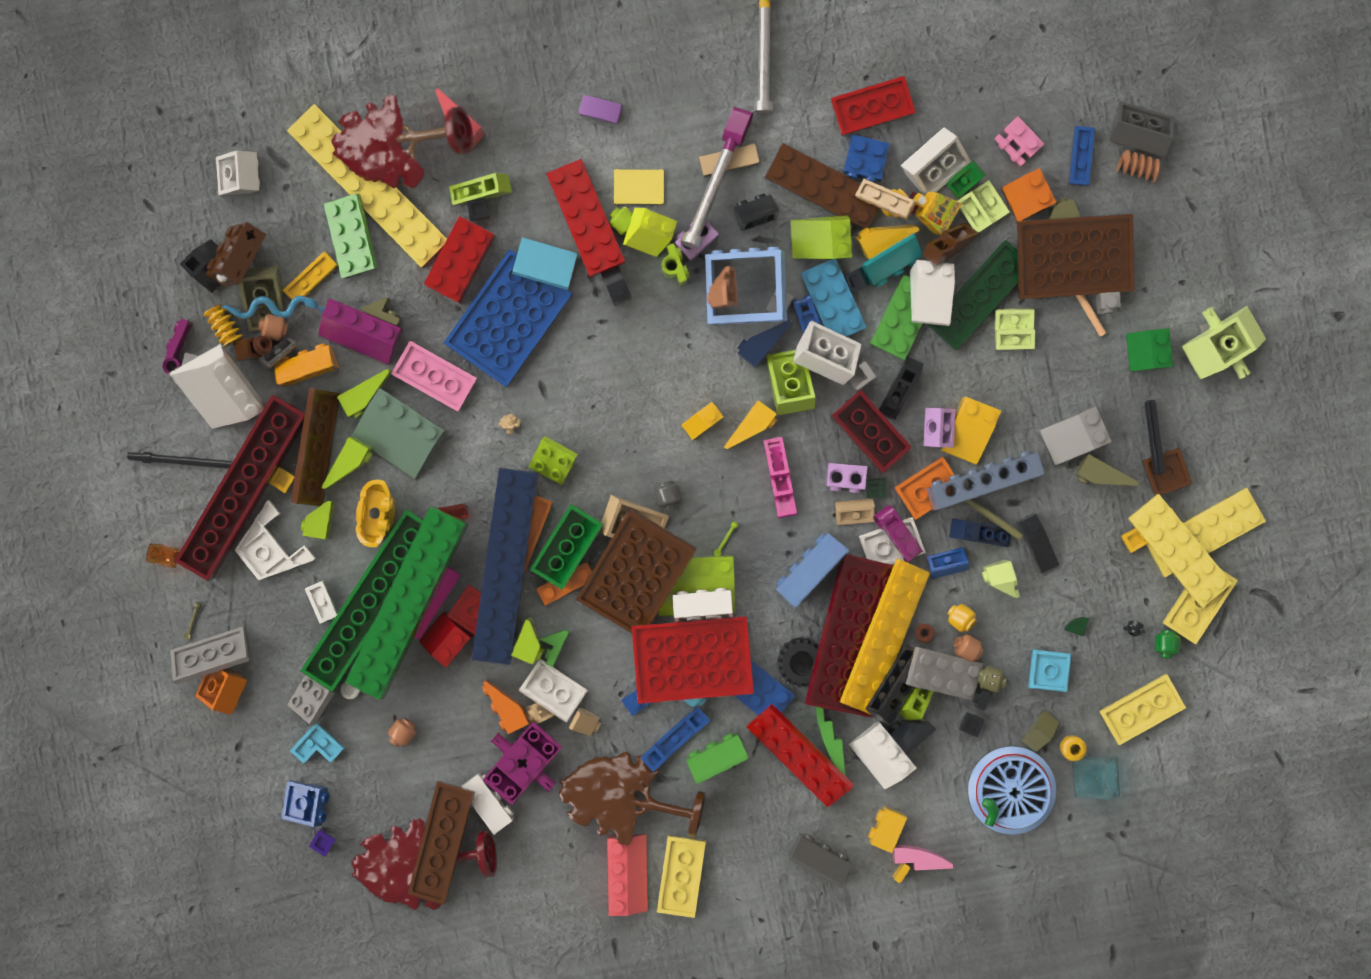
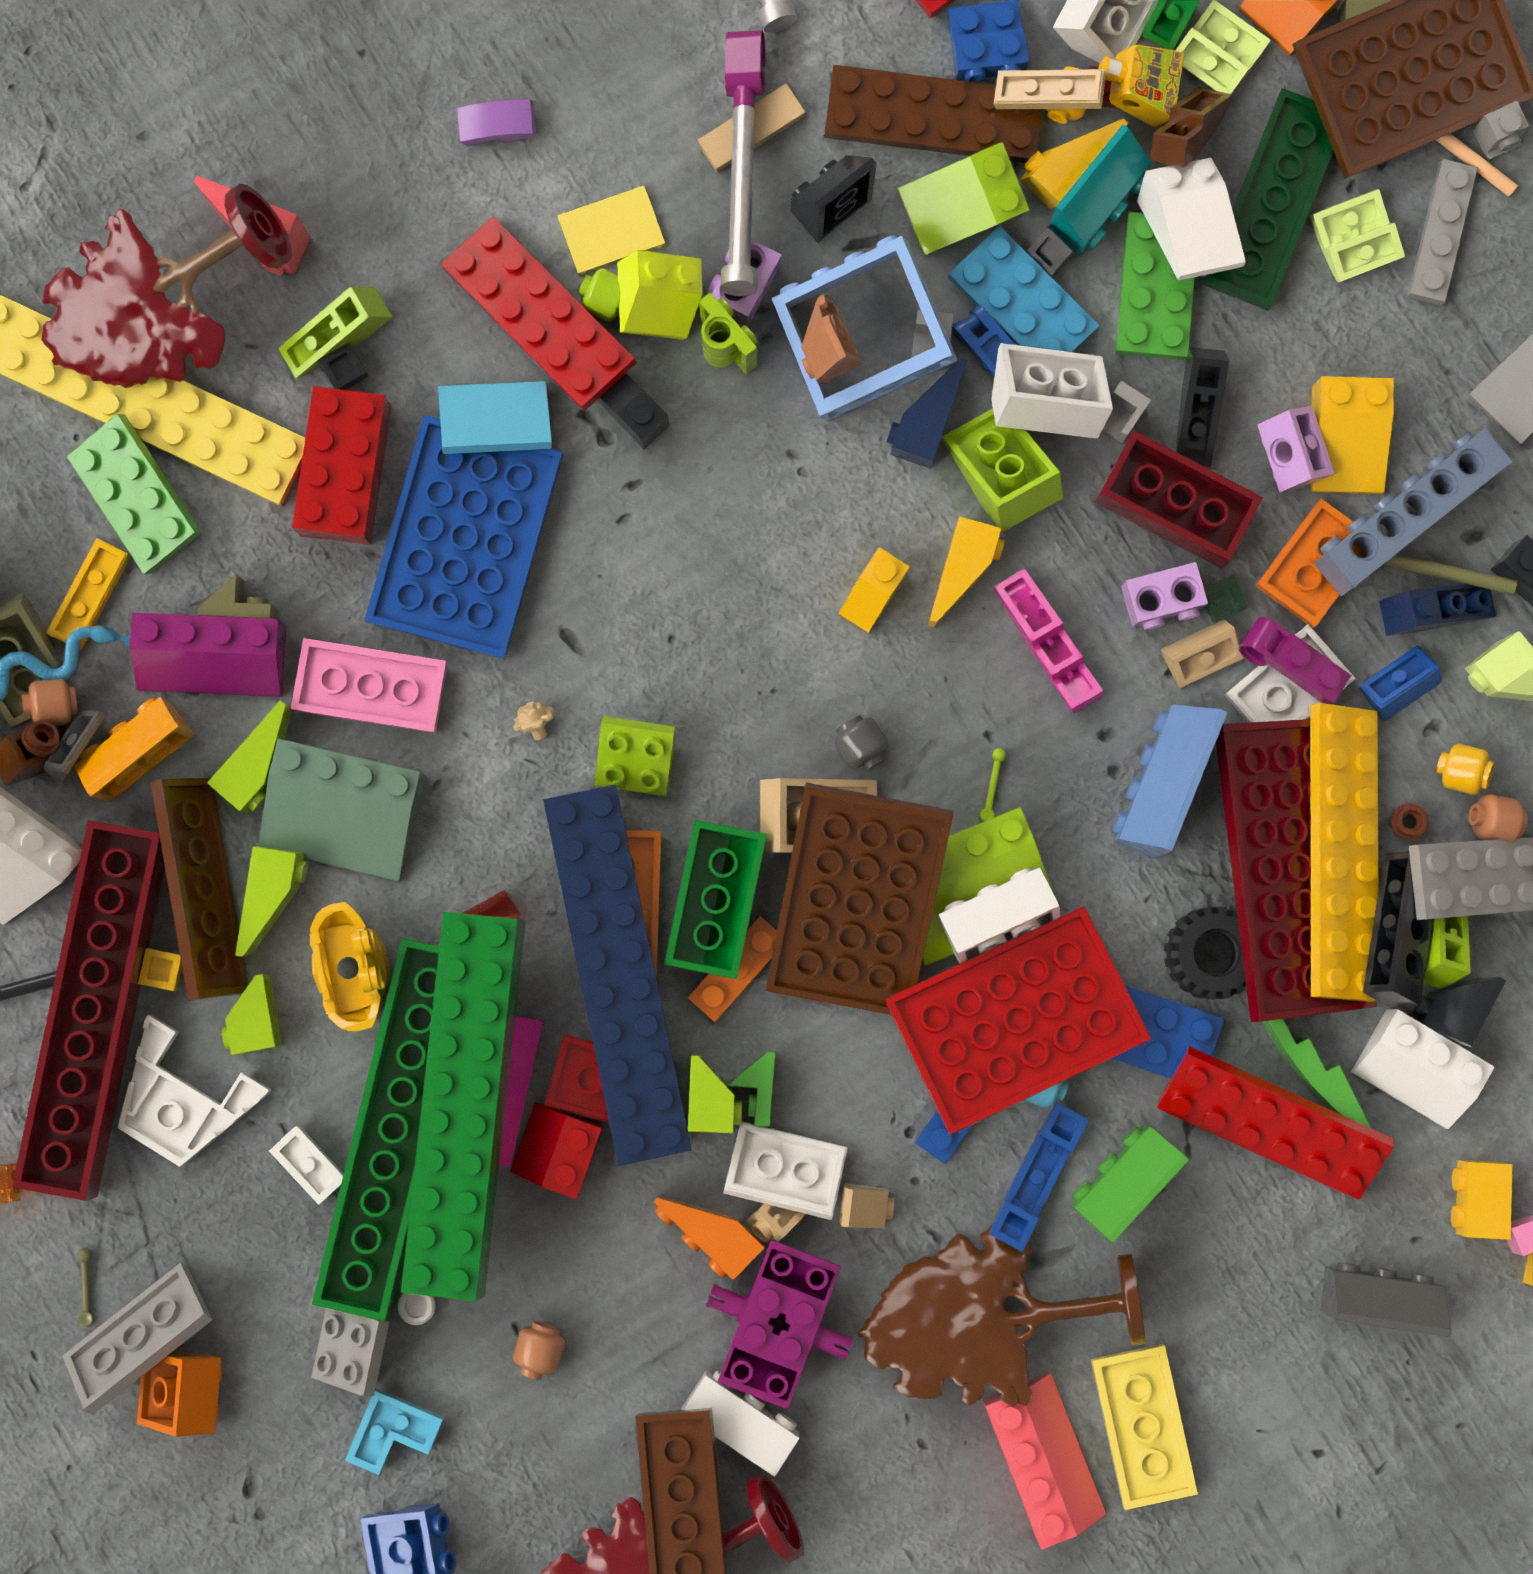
camera: 25 degrees left, 5 degrees down
(1058, 342) = (1442, 232): none -> light grey plate

